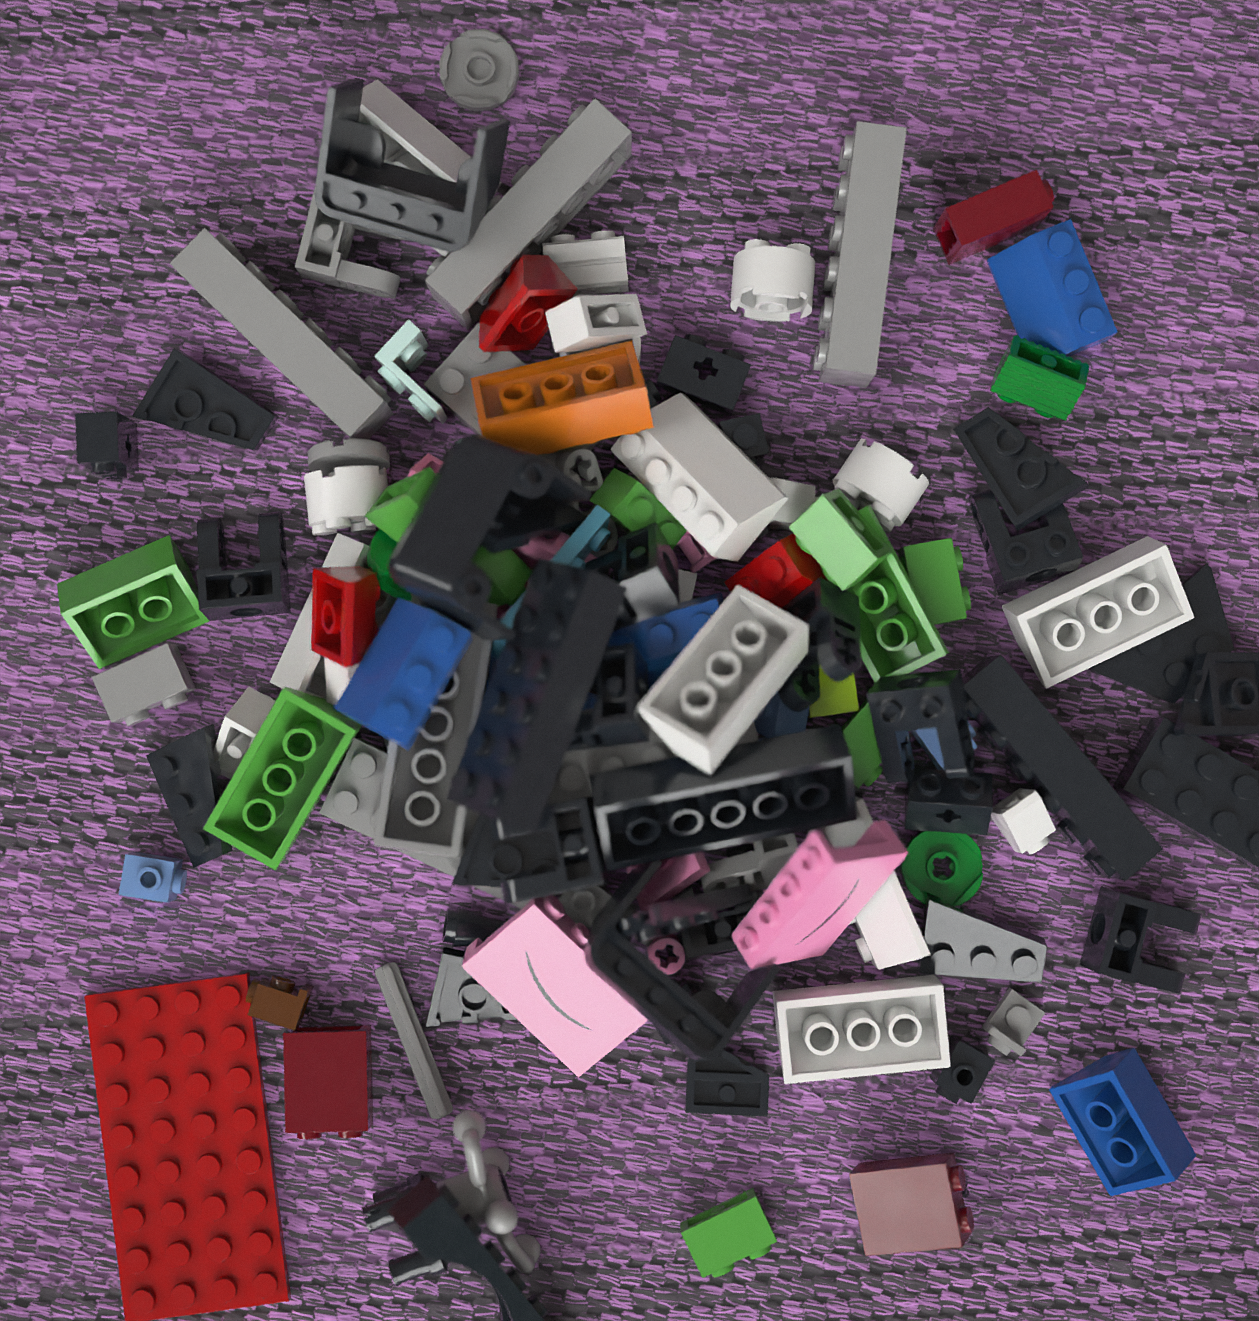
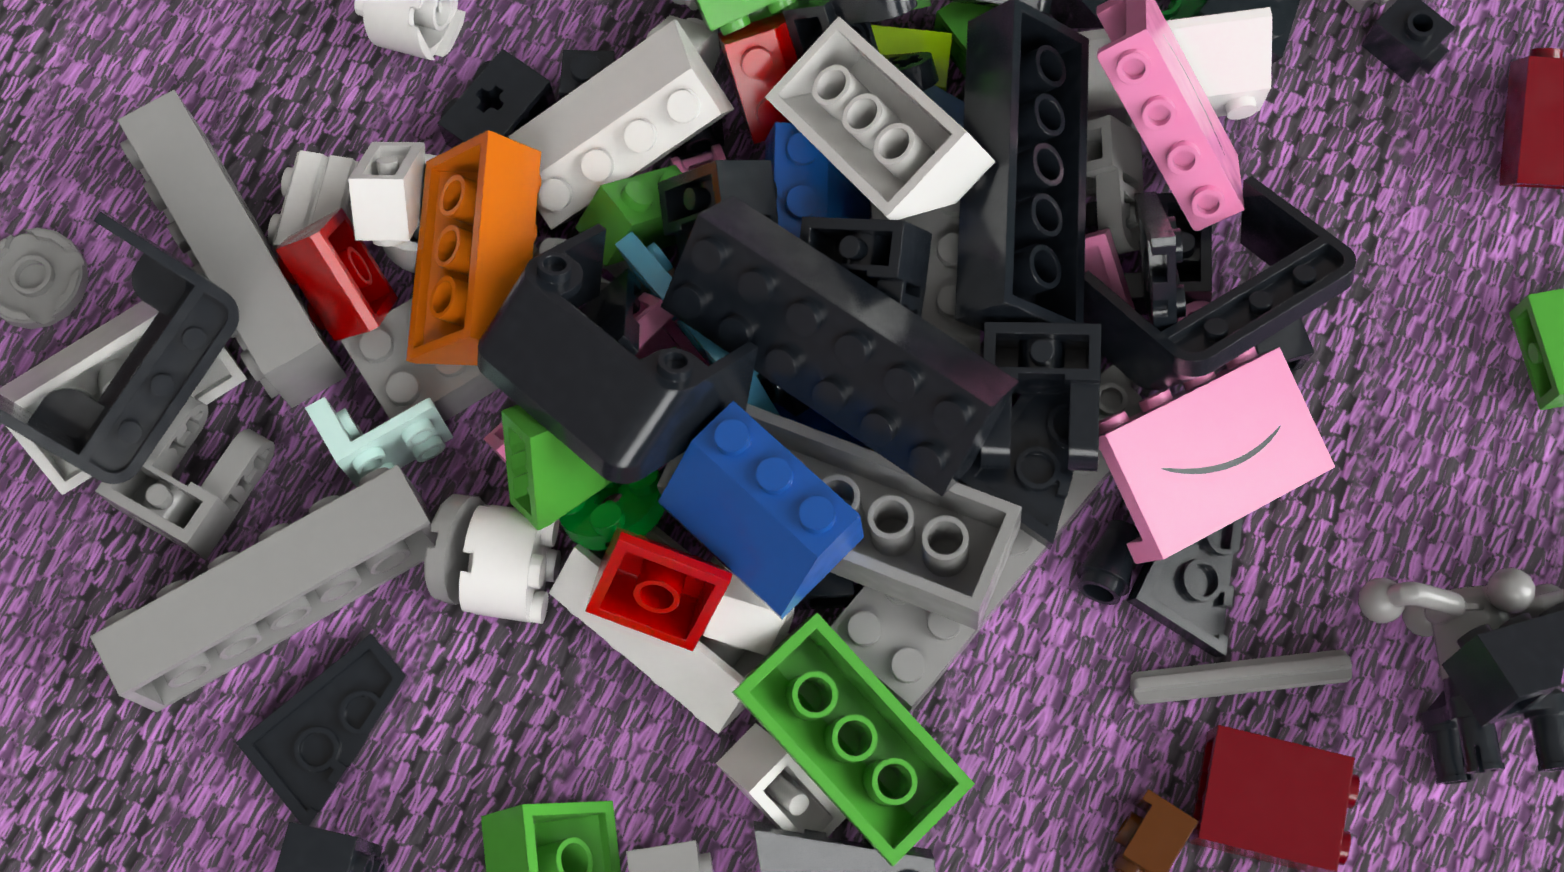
camera: 70 degrees left, 15 degrees down
(246, 591) = (586, 734): black brick -> none
(726, 1086) = (1374, 311): black wing -> none
(861, 1029) = (1341, 123): white slope -> none

